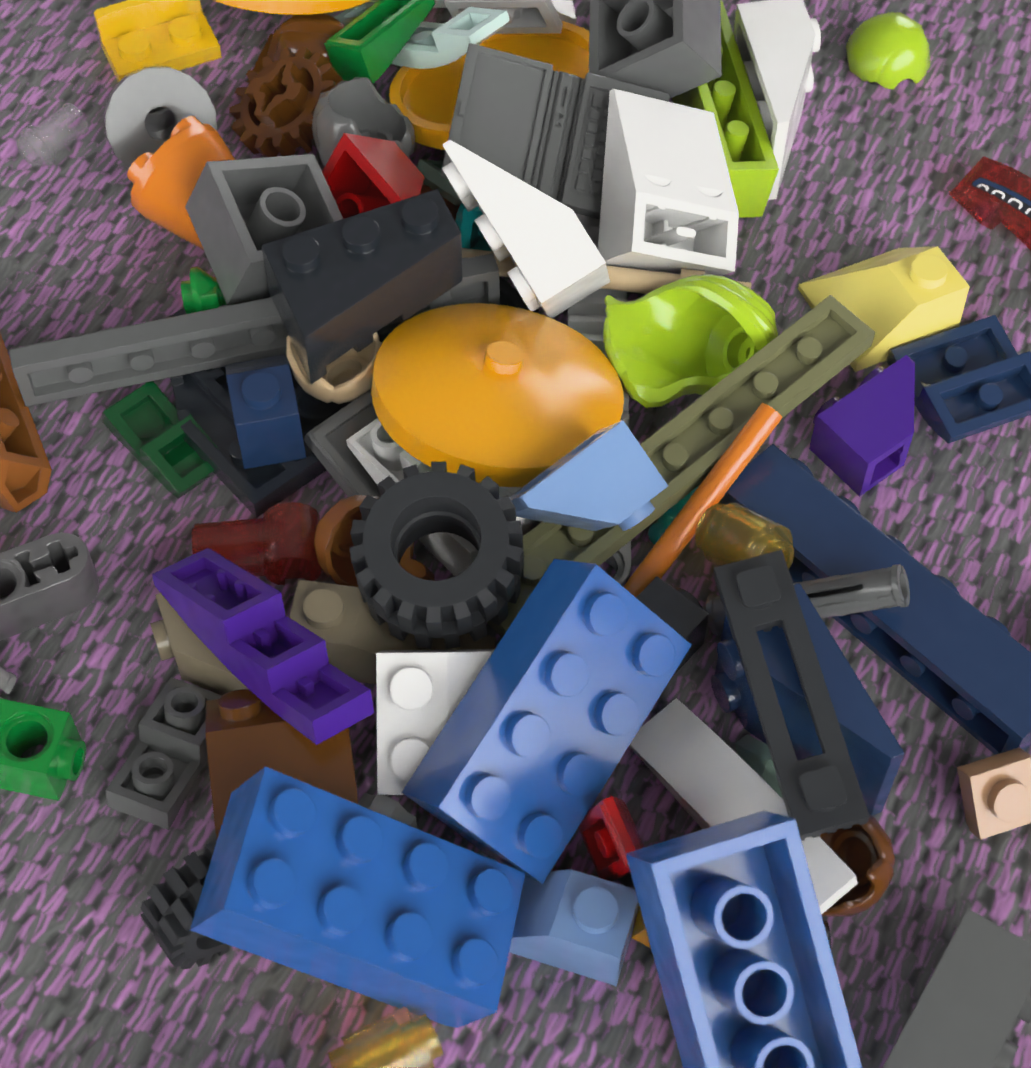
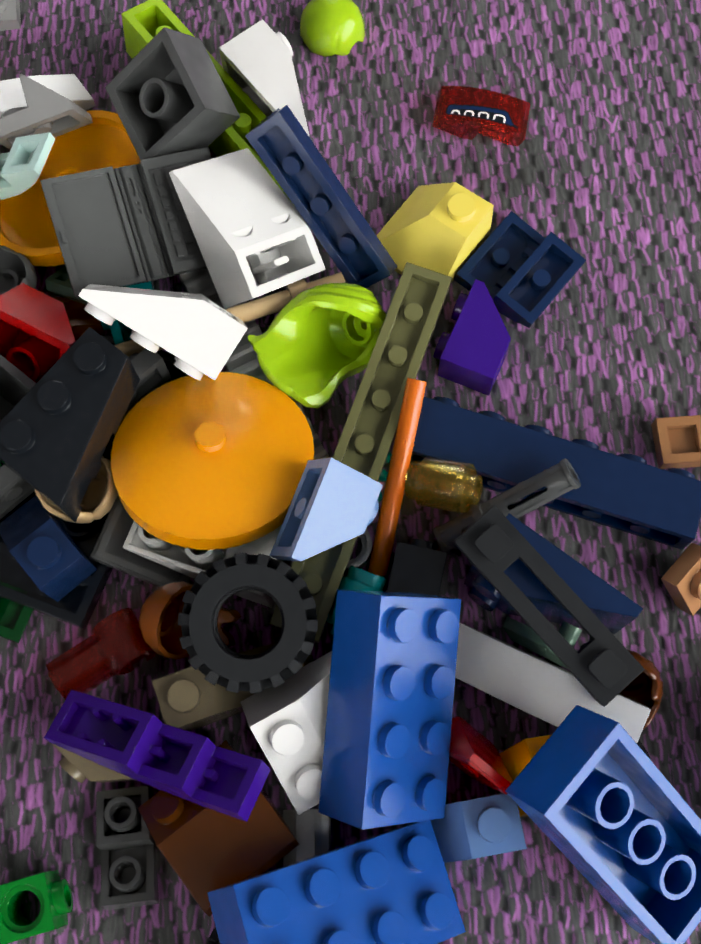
camera: 25 degrees left, 15 degrees up
(765, 190) = (320, 198): none -> dark blue fence

